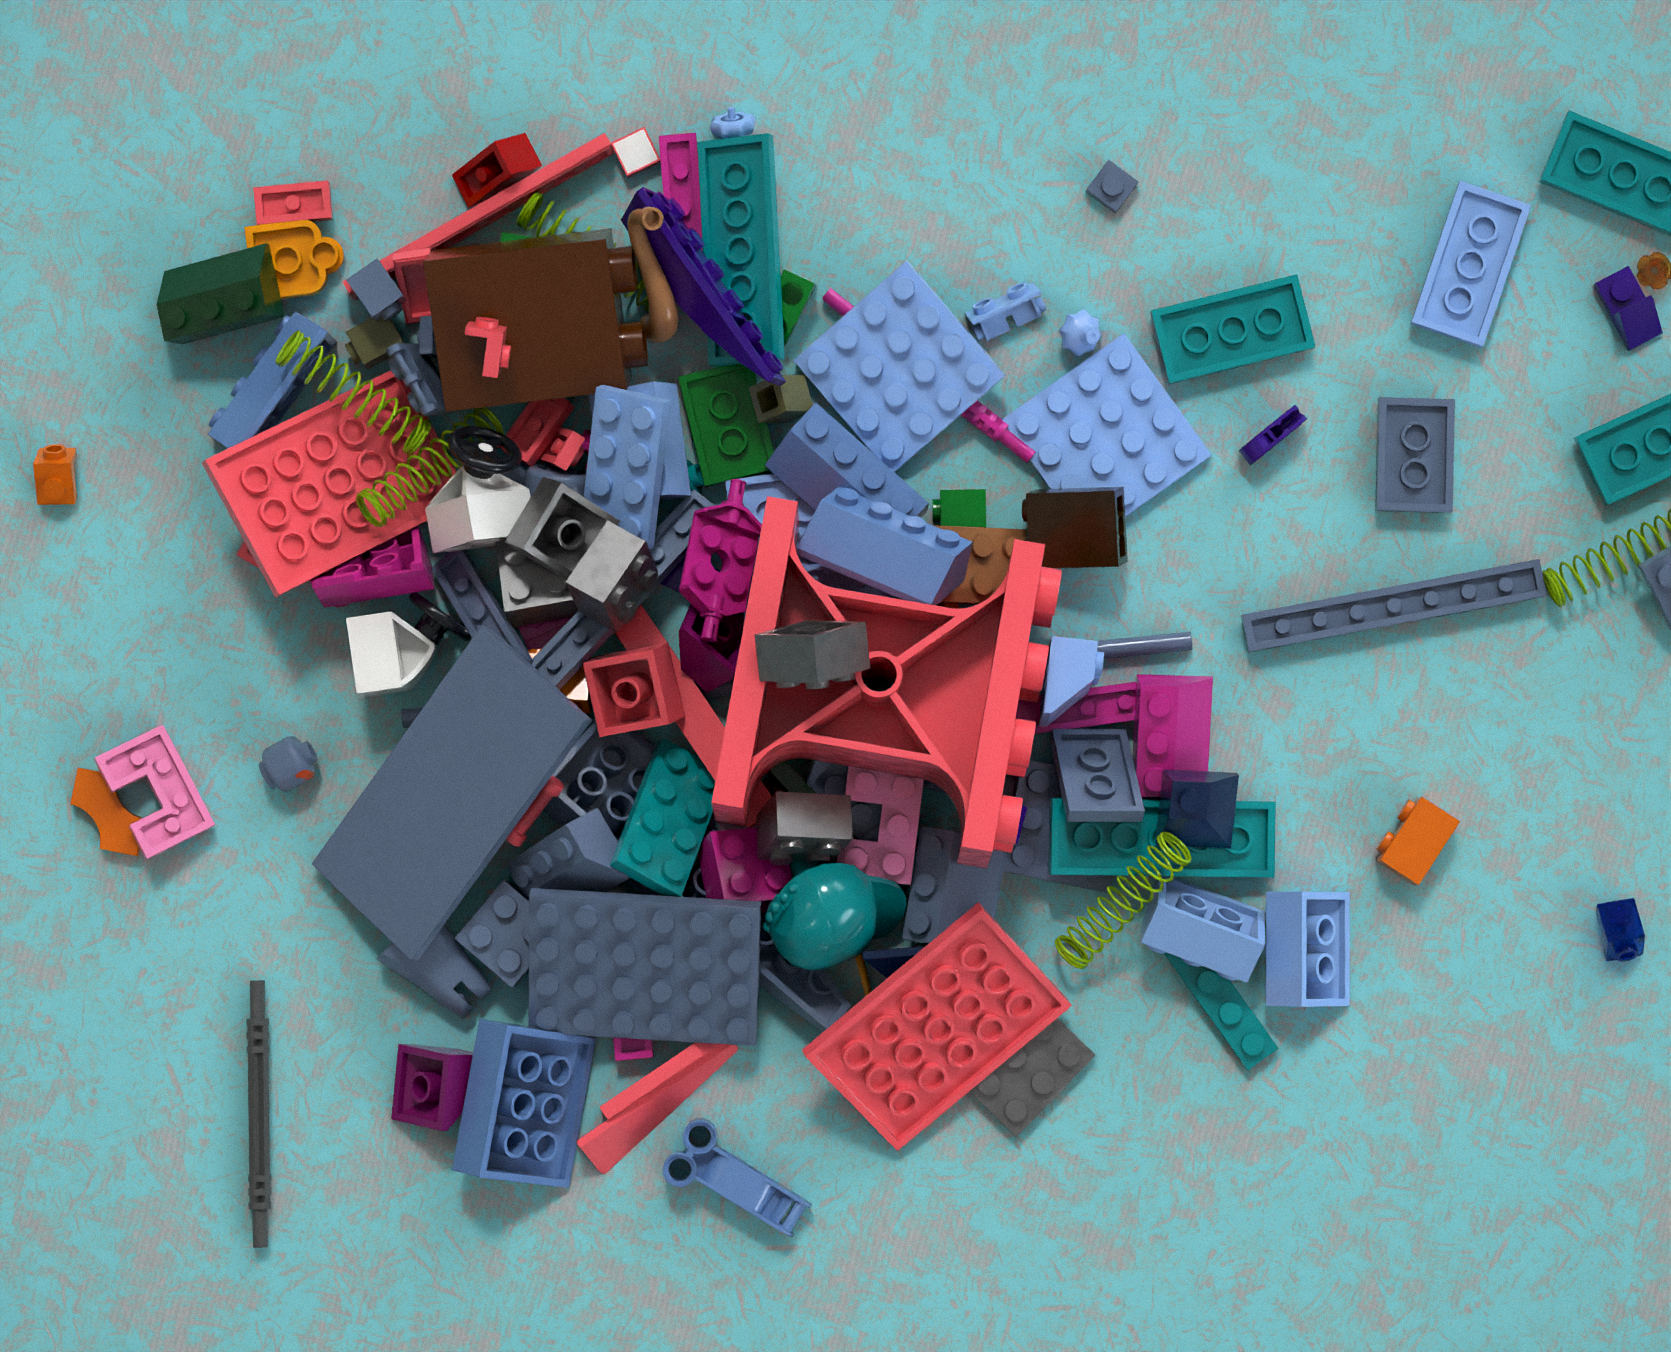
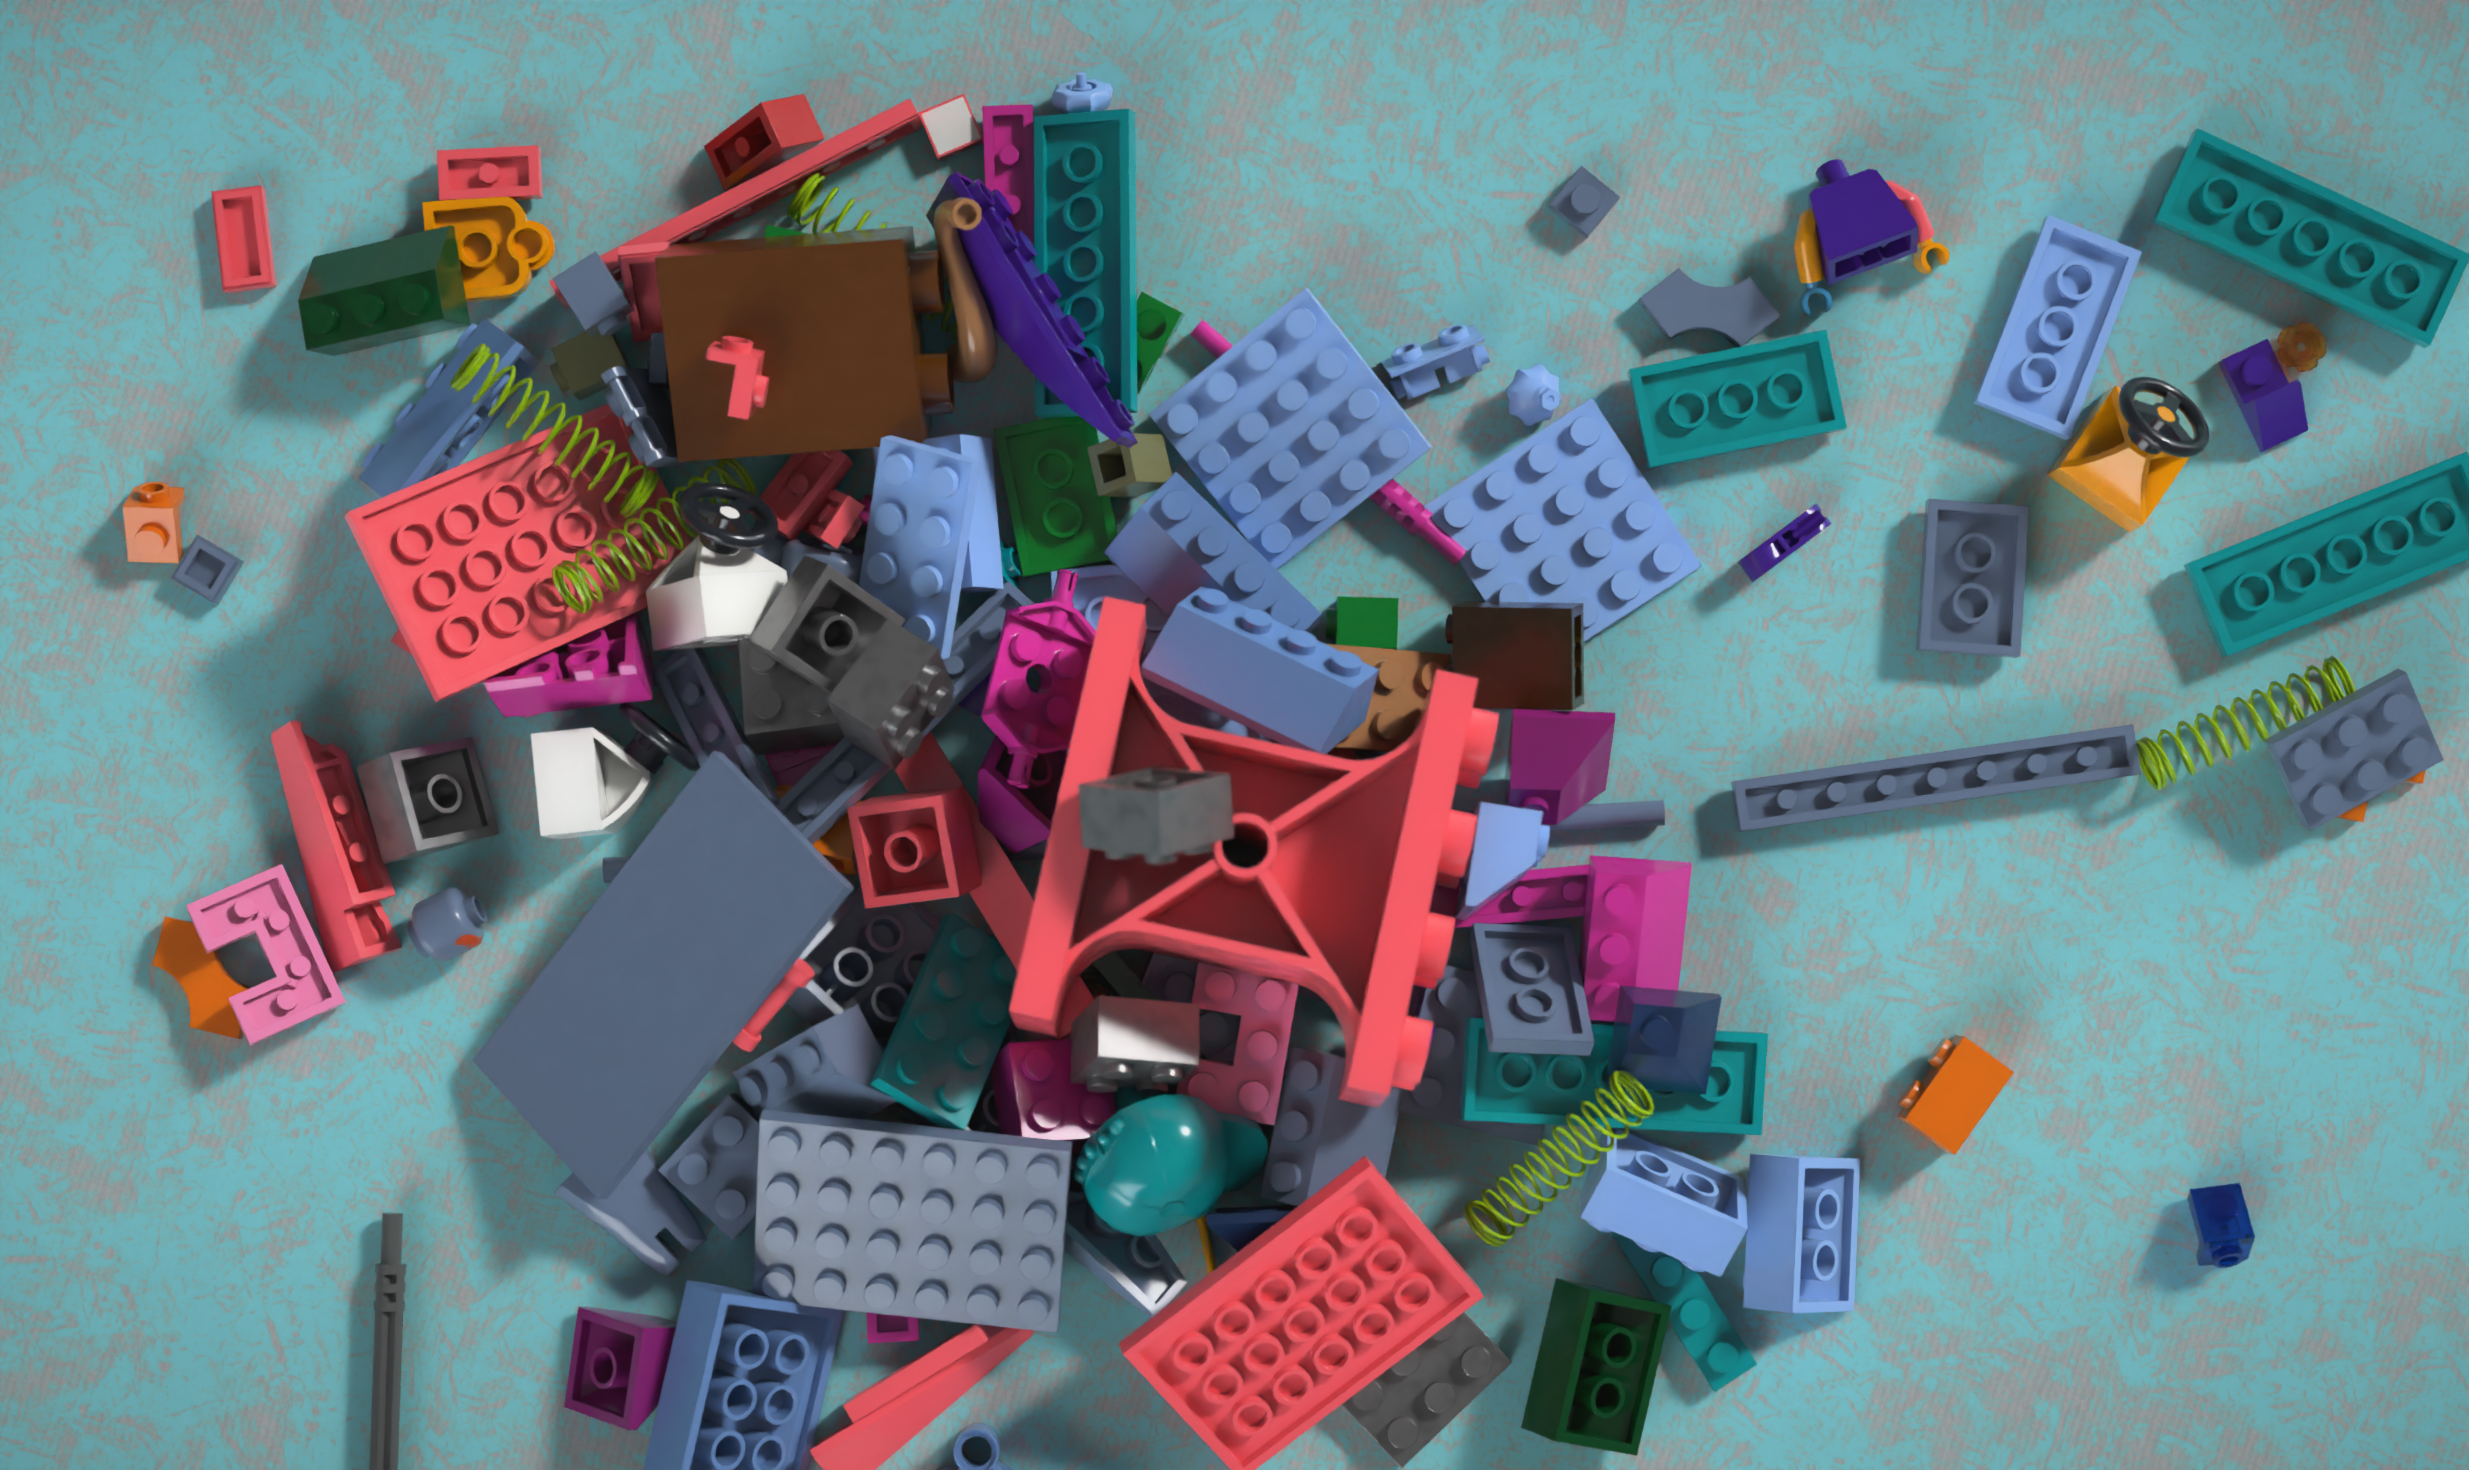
camera: 10 degrees left, 0 degrees up
(96, 508) = (207, 569): none -> sand blue tile
(111, 260) = (243, 239): none -> coral tile
(202, 711) = (335, 849): none -> coral wedge
(268, 671) = (427, 799): none -> flat silver slope
(1110, 604) = (1557, 760): none -> magenta slope
(1158, 1055) = (1596, 1367): none -> dark green slope
(1225, 263) = (1731, 311): none -> sand blue tile
(1316, 196) = (1858, 227): none -> dark purple torso
(1528, 354) = (2130, 450): none -> light orange piece

